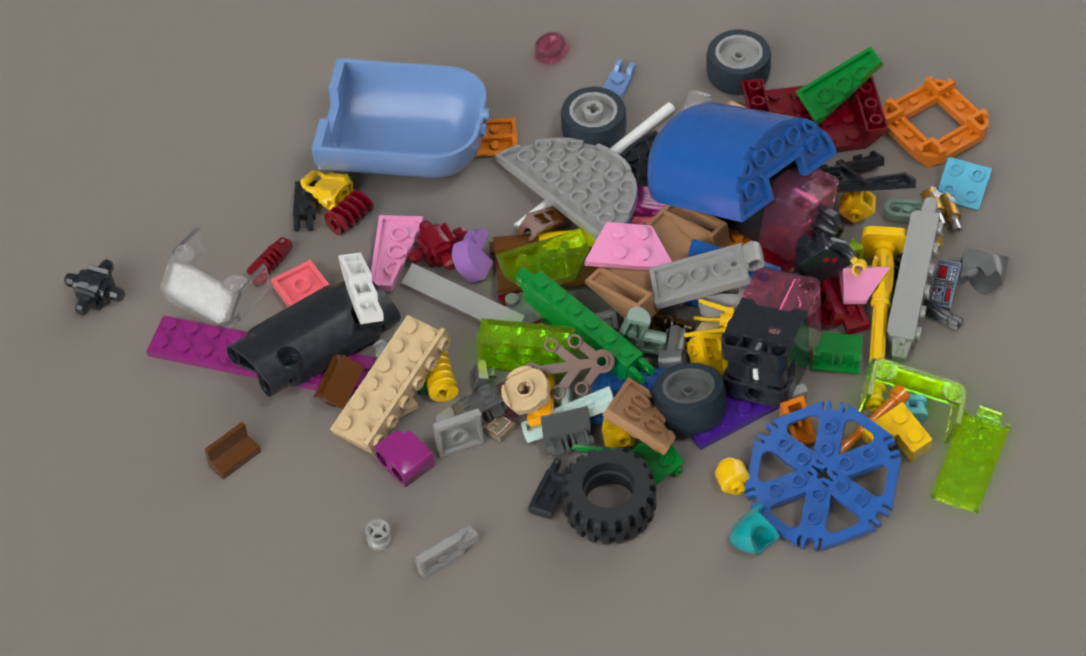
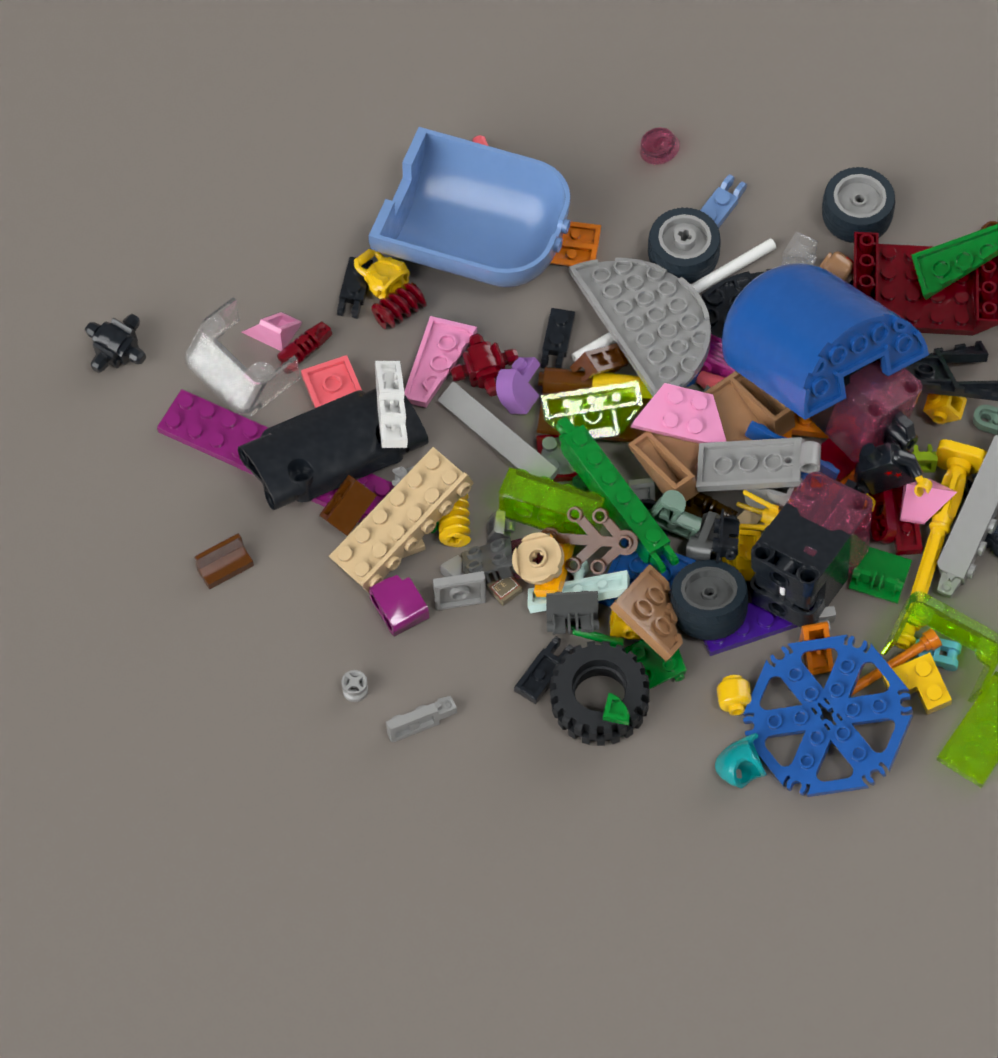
camera: 10 degrees right, 10 degrees up
(238, 253) = (275, 330): none -> bright pink slope
(498, 212) = (557, 336): none -> black hinge
(629, 503) = (616, 710): none -> green tile
(693, 340) = (725, 528): none -> black hinge

